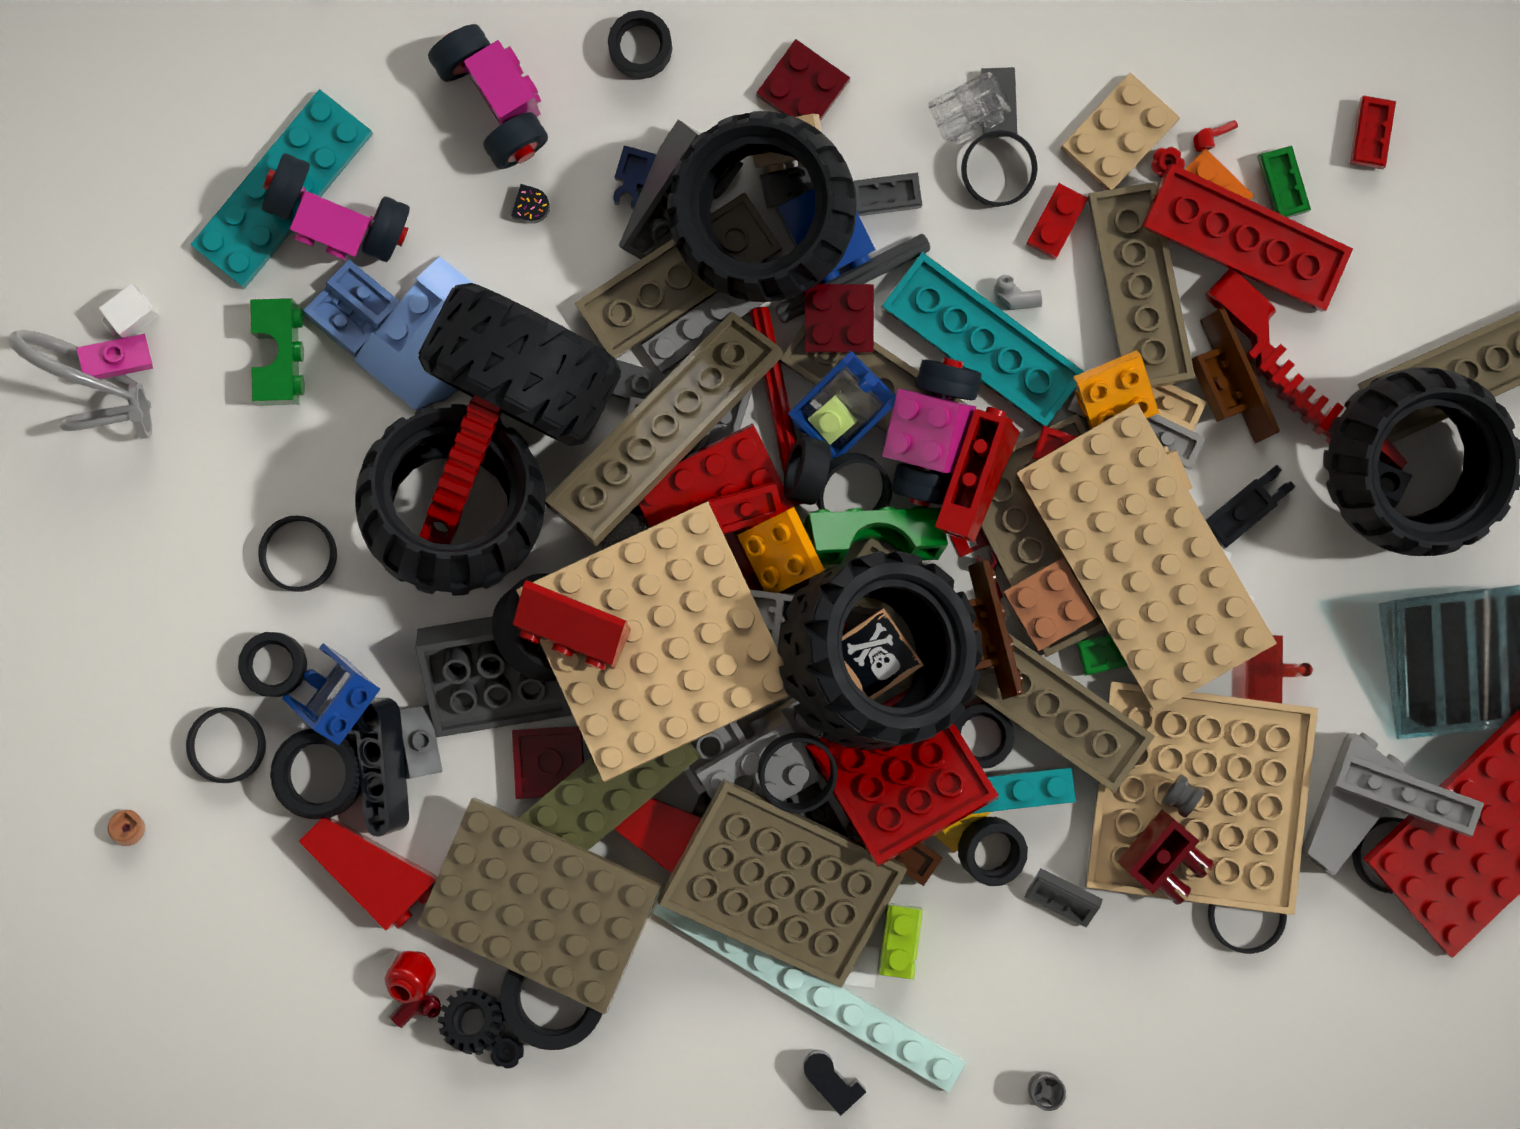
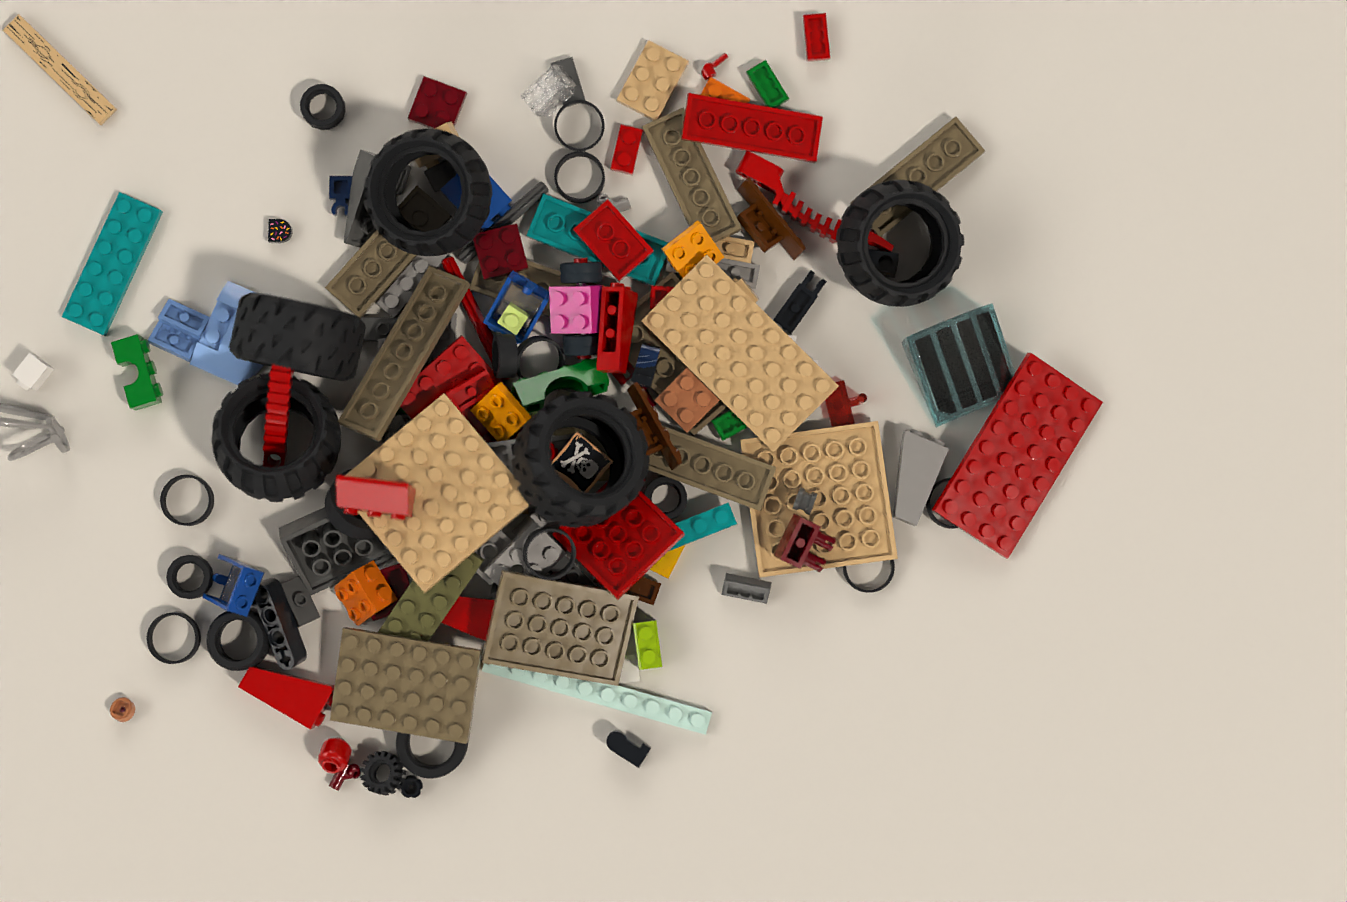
camera: 20 degrees left, 0 degrees up
(115, 357) = (32, 404): dark pink plate -> none
(329, 222) = (147, 277): brick -> none
(500, 83) = (237, 157): brick -> none
(515, 756) = (364, 593): none -> orange bracket
(888, 194) = (510, 162): dark grey plate -> none
(987, 209) = (579, 154): none -> black tyre
(1005, 346) = (613, 240): none -> red plate
(1005, 538) = (646, 365): none -> leg
(1011, 866) = (704, 582): black tyre -> none
(1051, 1095) = (768, 719): flat silver wheel -> none
(1161, 155) = (683, 88): red plate -> none
(1409, 795) = (948, 460): light grey plate -> none

